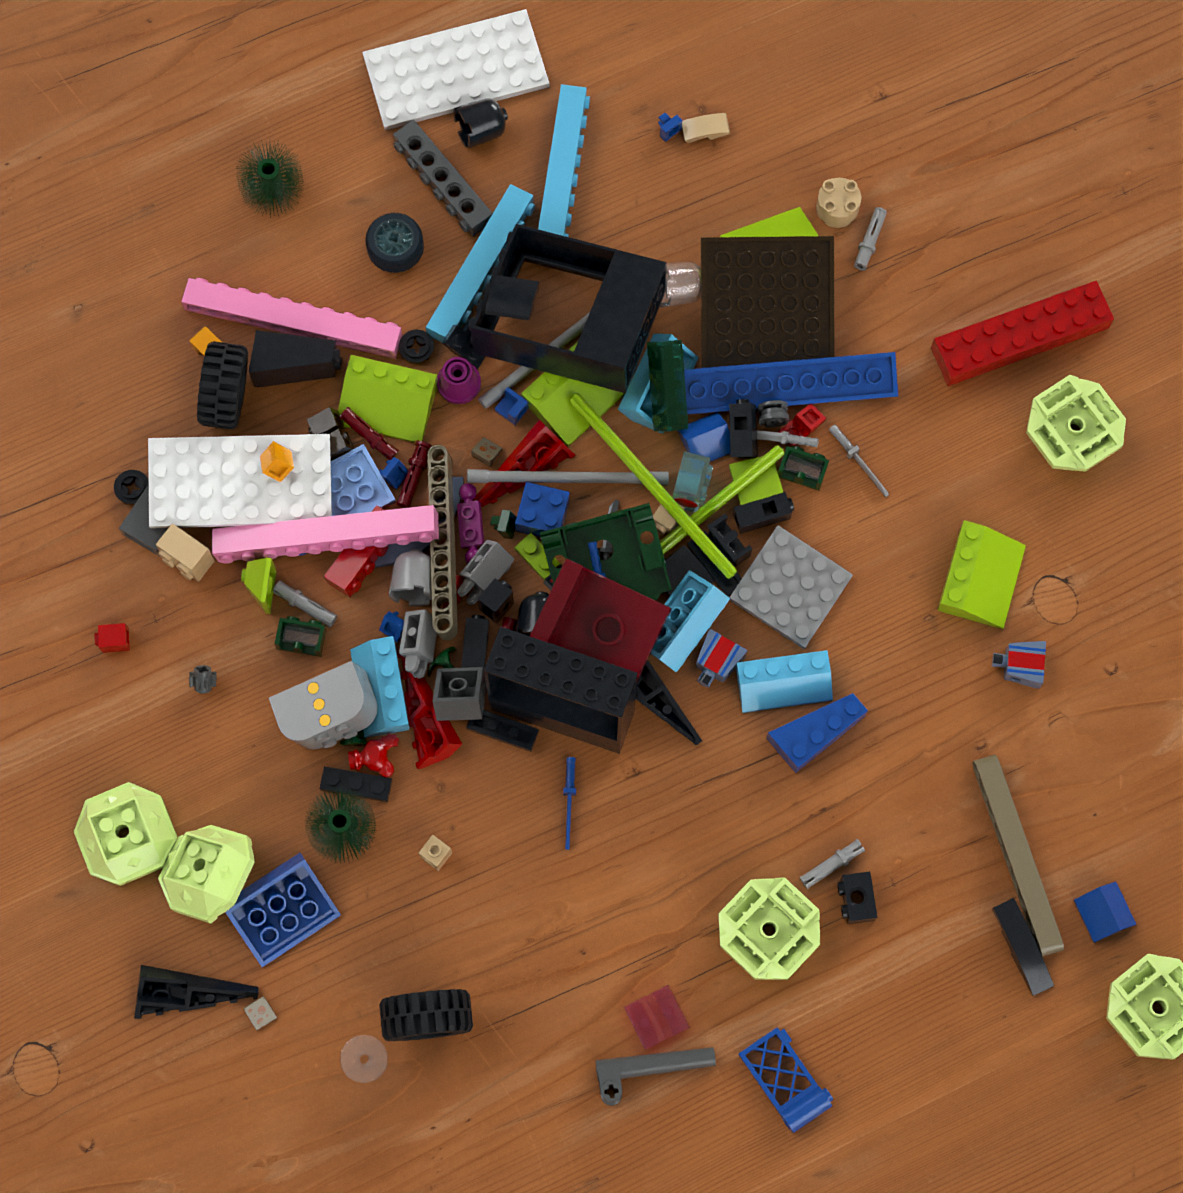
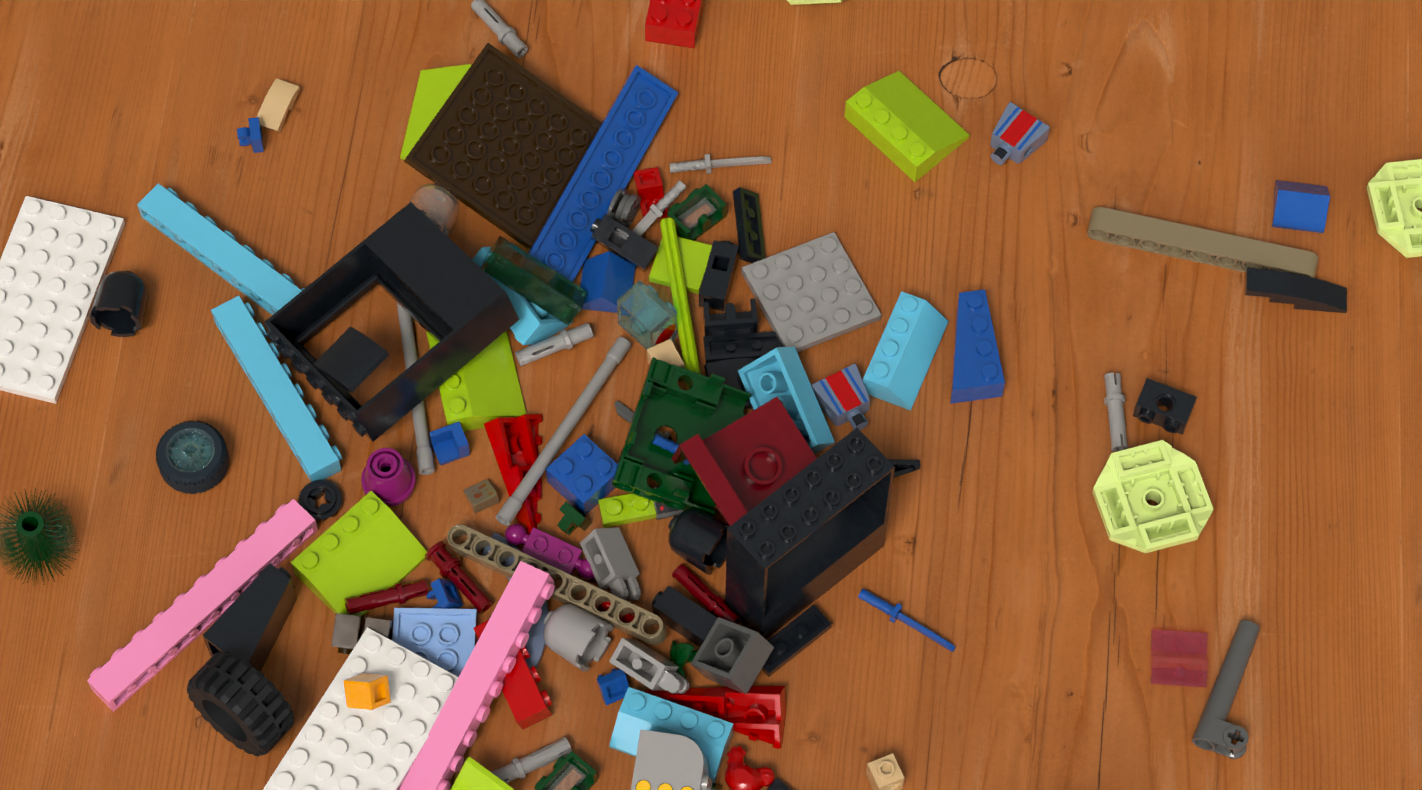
camera: 60 degrees left, 10 degrees down
(202, 339) = (172, 703): light orange panel -> none
(413, 135) = (87, 373): dark grey brick -> none
(459, 343) = (349, 447): black hinge -> none
(496, 600) = (653, 567): black brick -> none
(642, 435) = (562, 341): none -> light grey pin
(653, 486) = (627, 353): lime axle -> none
(805, 1105) = (1344, 564): blue piece -> none
(817, 510) = (748, 225): none -> black plate
(838, 202) = (443, 31): tan brick -> none

